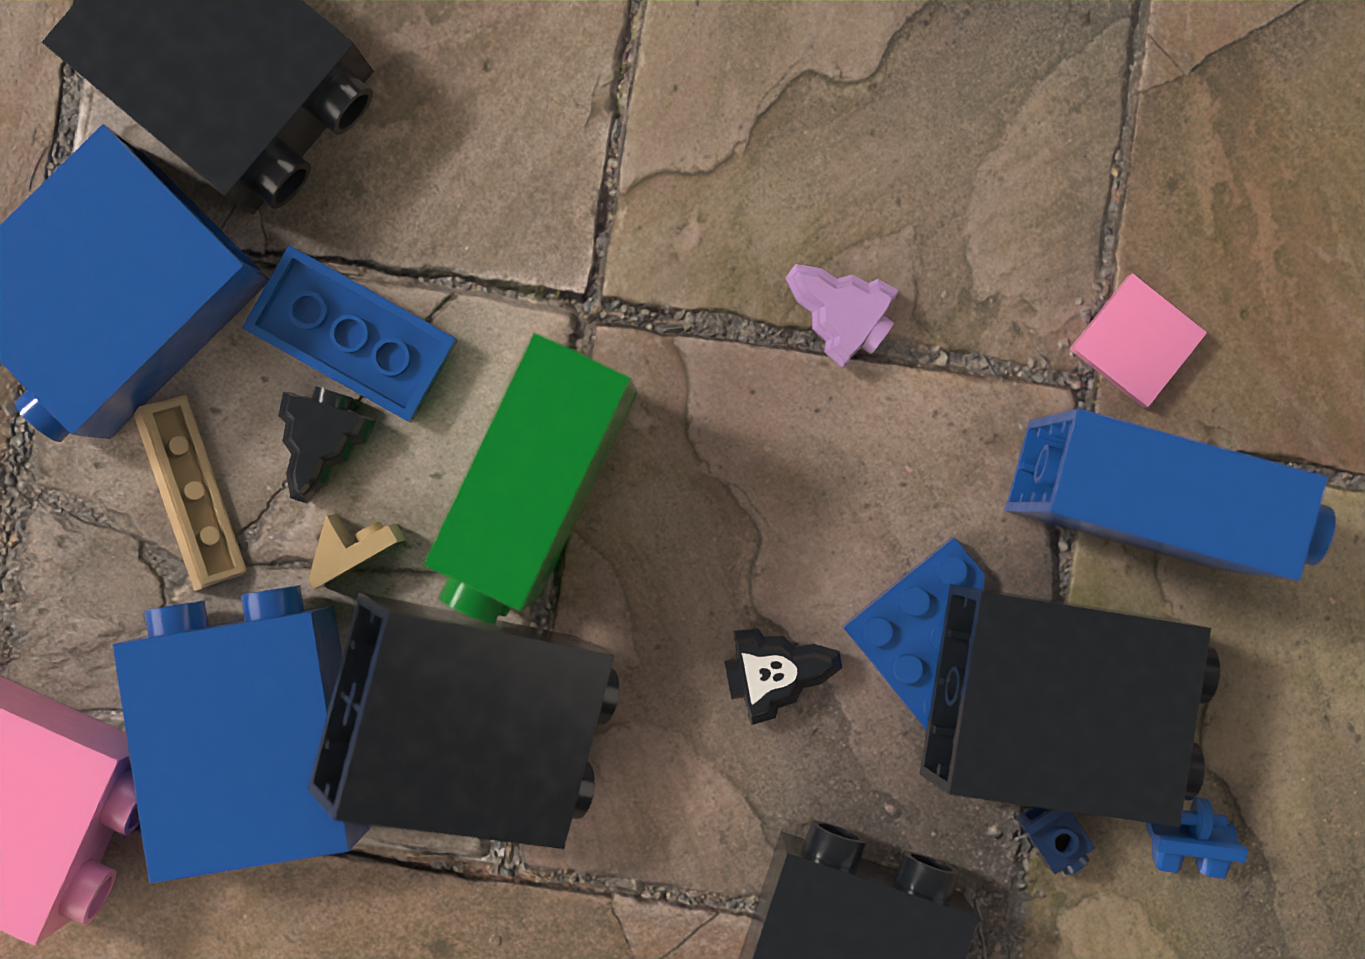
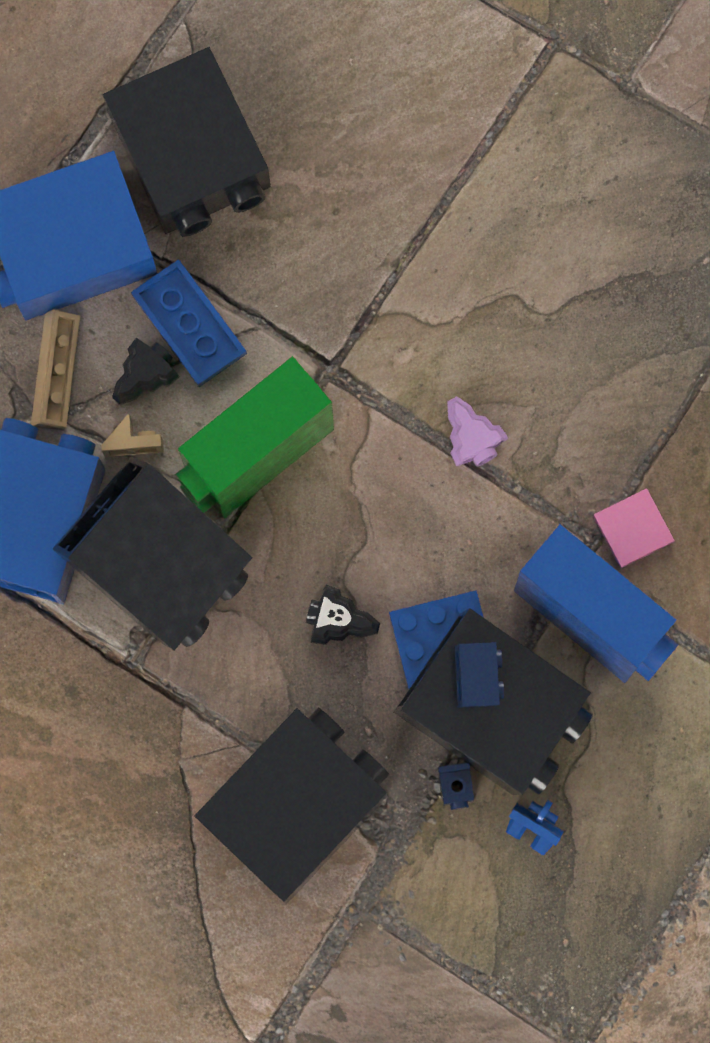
camera: 25 degrees right, 10 degrees down
(1046, 692) = (478, 675): none -> dark blue brick

